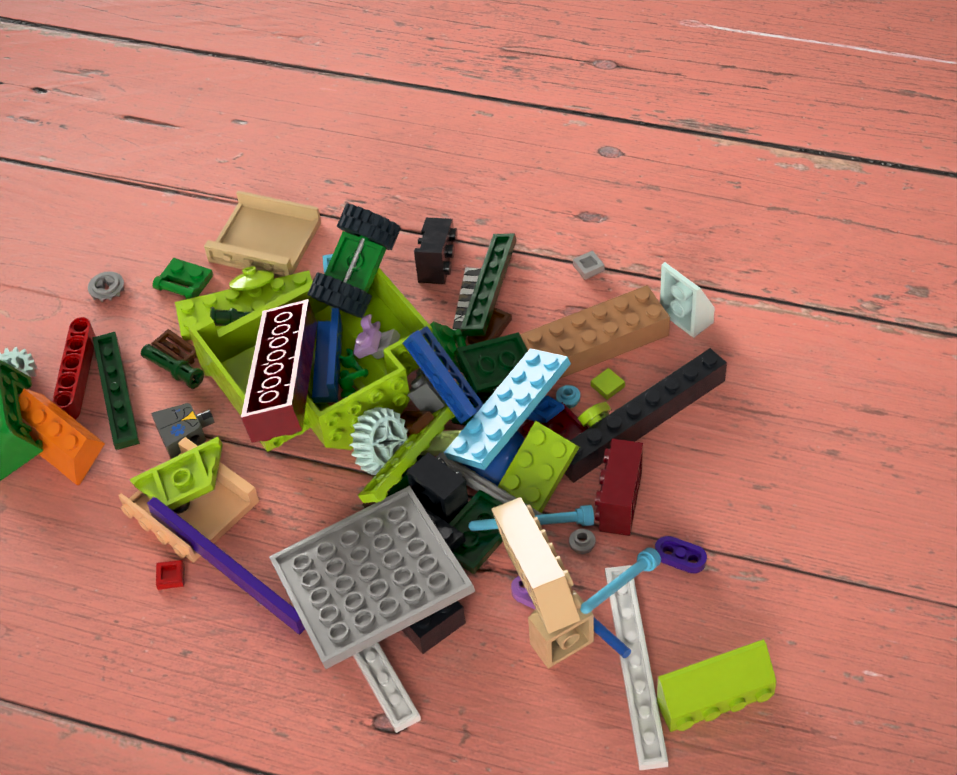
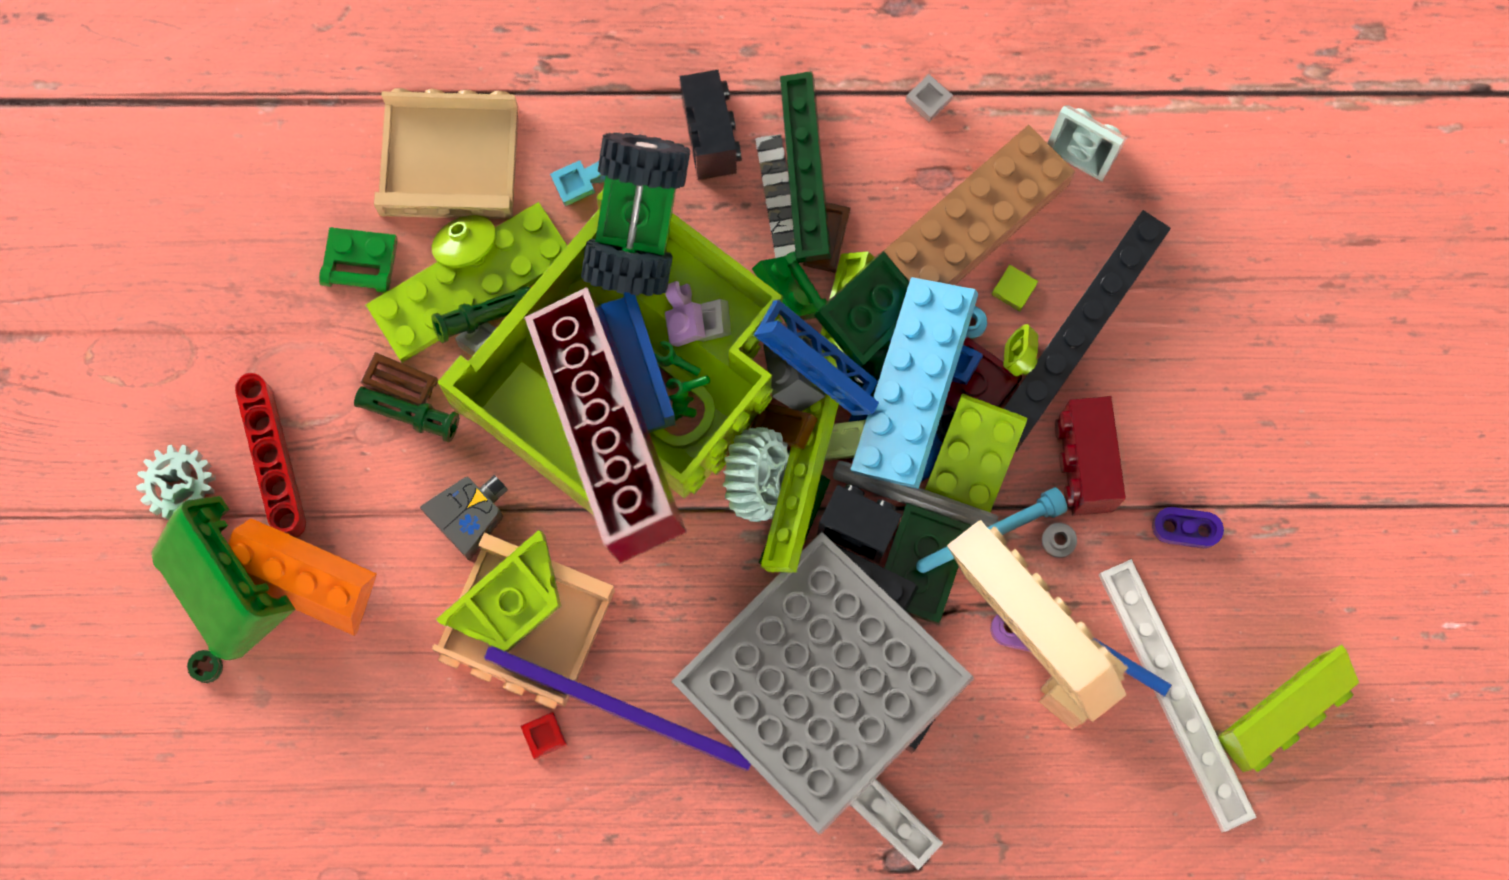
camera: 25 degrees left, 25 degrees up
(97, 285) = (234, 300): light grey gear -> none
(115, 391) = (344, 473): dark green plate -> none
(646, 561) = (1151, 549): medium azure piece -> none

